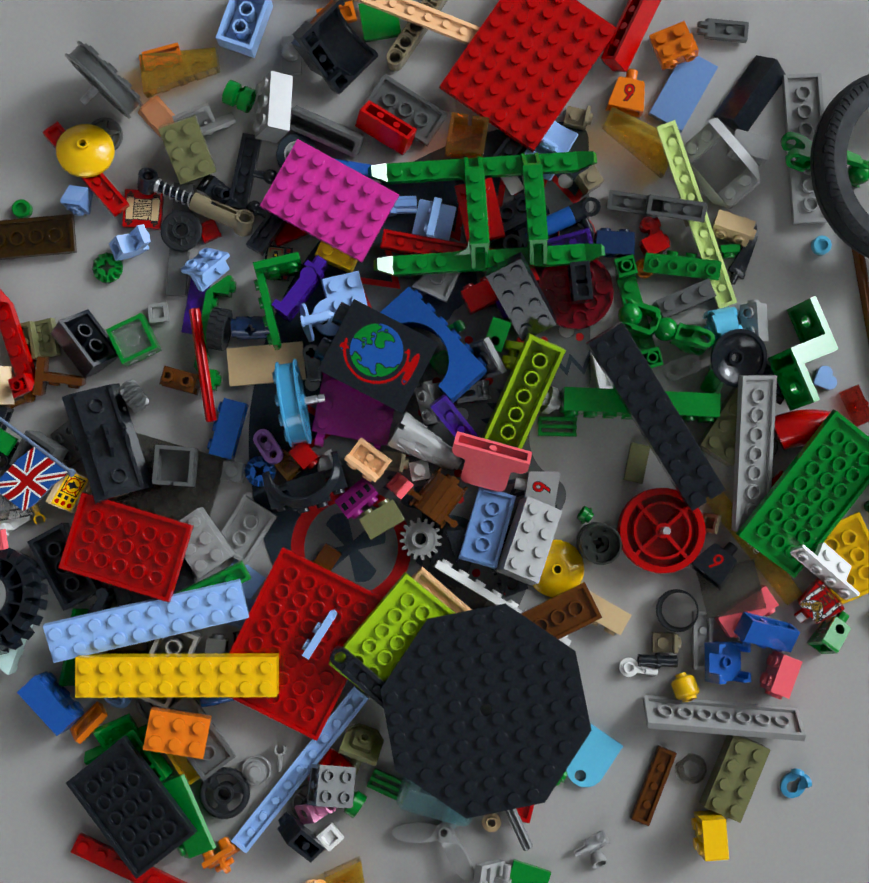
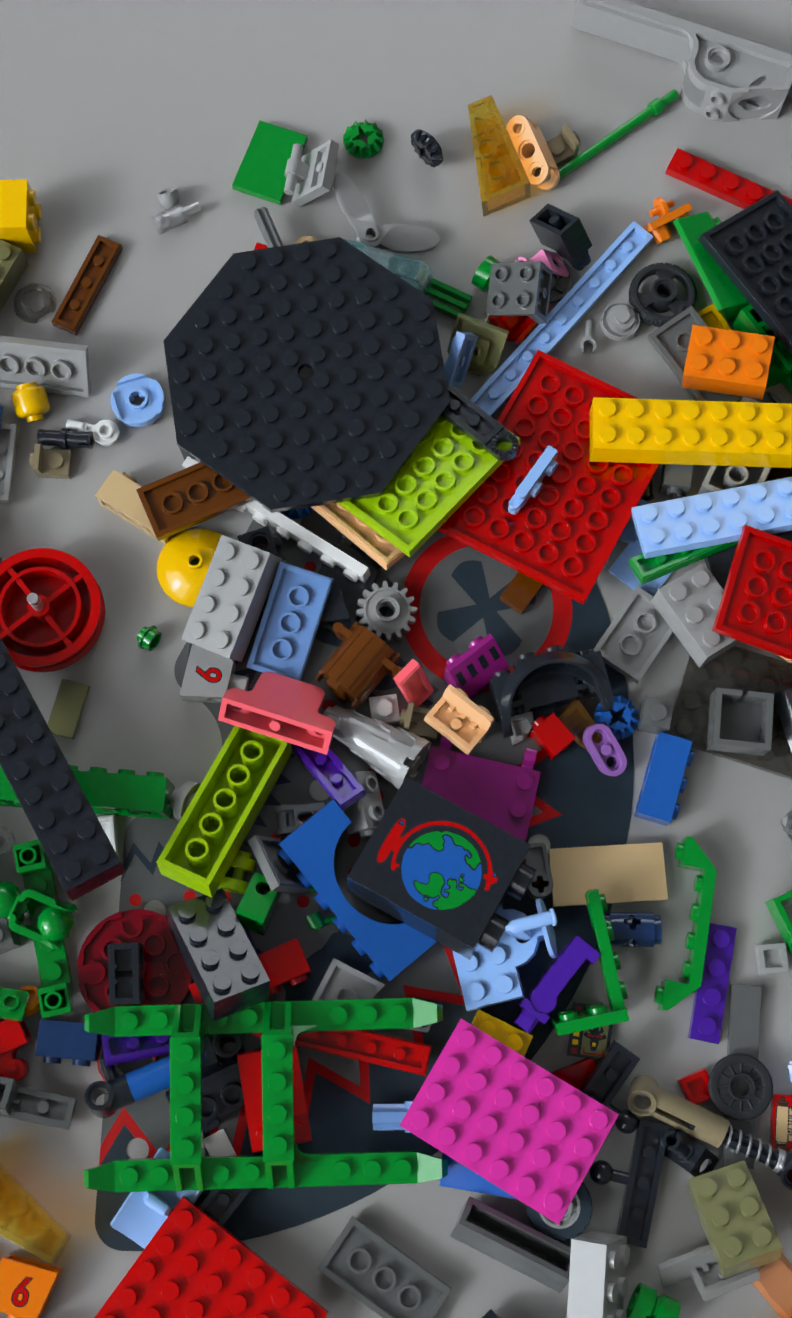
camera: 175 degrees left, 10 degrees down
(180, 380) = (735, 852): reddish brown hips -> none
(202, 365) = (703, 871): red axle -> none
(206, 267) = (700, 1025): light blue bracket -> none
(219, 329) = (679, 925): black tyre -> none
(293, 403) = (567, 802): dark azure wheel -> none
(330, 836) = (521, 237): white plate -> none
(373, 733) = (459, 358): none -> medium blue plate
(382, 518) = (440, 638): olive brick -> none
(385, 127) = (417, 1246): red brick -> none
(434, 219) = (346, 1089): light blue bracket -> none
(440, 362) = (344, 861): green tile -> none
(466, 139) = (287, 1224): clear orange piece -> none
(555, 426) = (181, 765): green tile -> none
(578, 118) = (108, 1254): dark tan bracket -> none
(589, 180) = (99, 1145): dark tan brick -> none
(594, 757) = (158, 320): medium azure tile -> none
(607, 550) = (125, 582): pearl dark grey wheel -> none
(617, 698) = (124, 394): none -> light blue plate
(663, 622) = (42, 479): black tyre -> none

